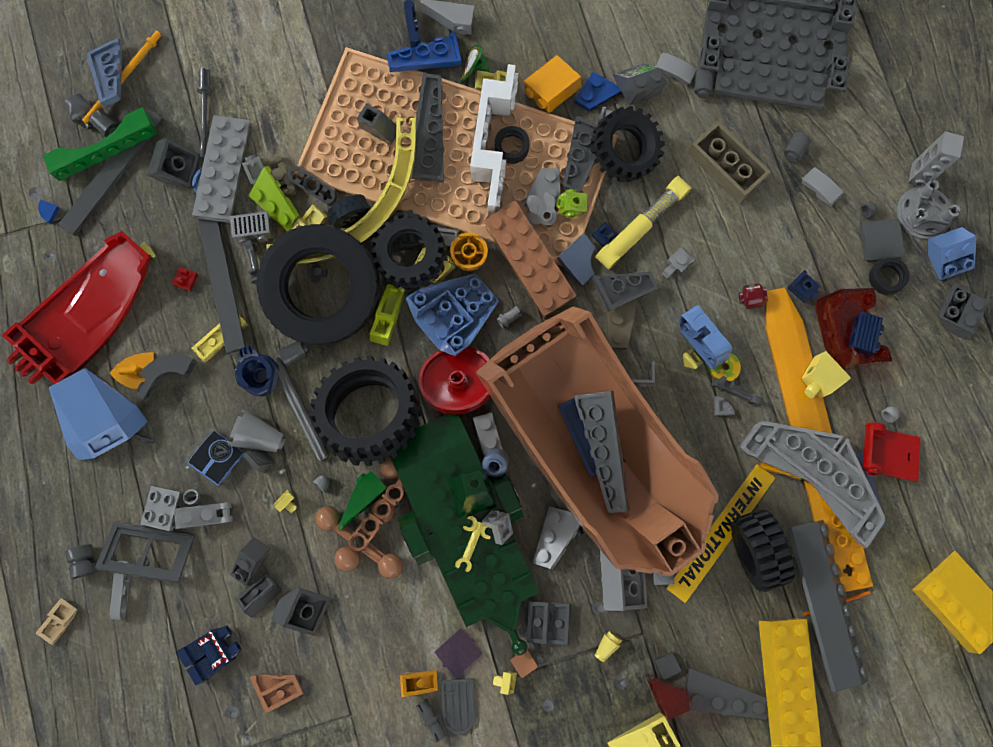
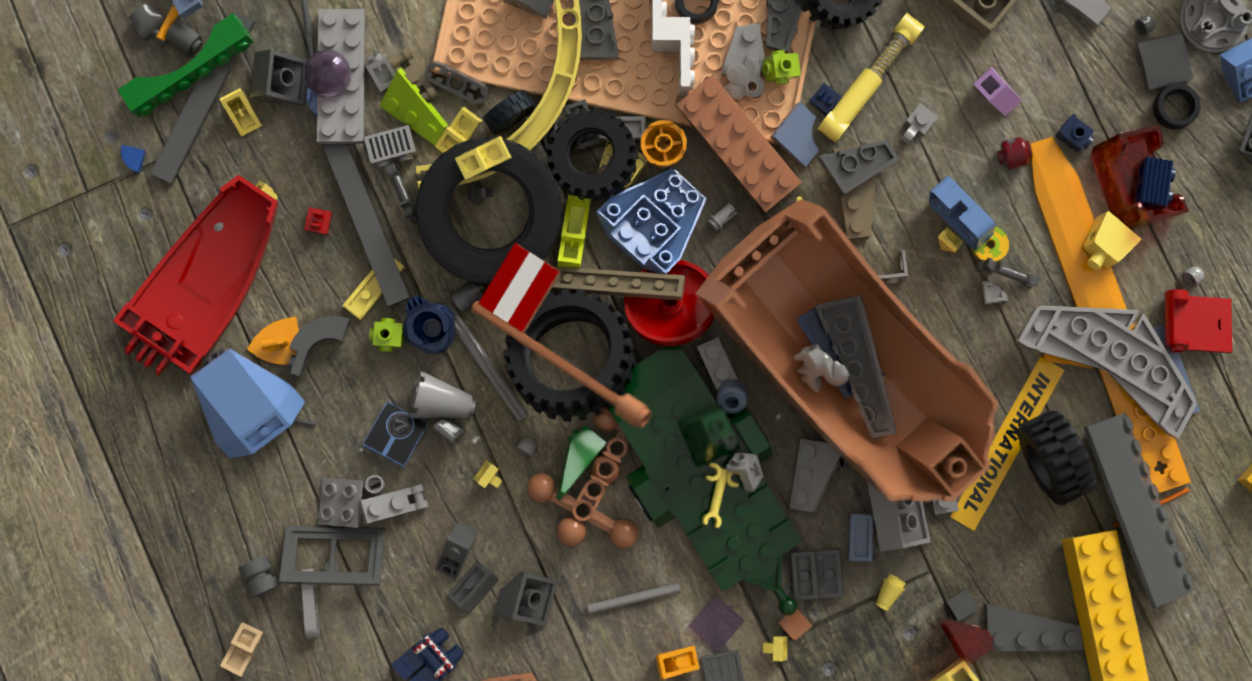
camera: 10 degrees left, 5 degrees up
(137, 184) = (241, 111): none -> light yellow slope
(209, 162) = (327, 73): none -> clear purple cylinder
(222, 376) = (395, 338): none -> lime brick
(316, 239) = (483, 157): none -> light yellow slope
(324, 362) = (512, 304): none -> flag
(391, 622) = (633, 598): none -> light grey bar
(414, 357) = (620, 283): none -> dark tan plate
(570, 445) = (818, 364): none -> light grey animal
(589, 596) = (860, 537): none -> sand blue tile
(744, 245) = (997, 91): none -> lavender slope

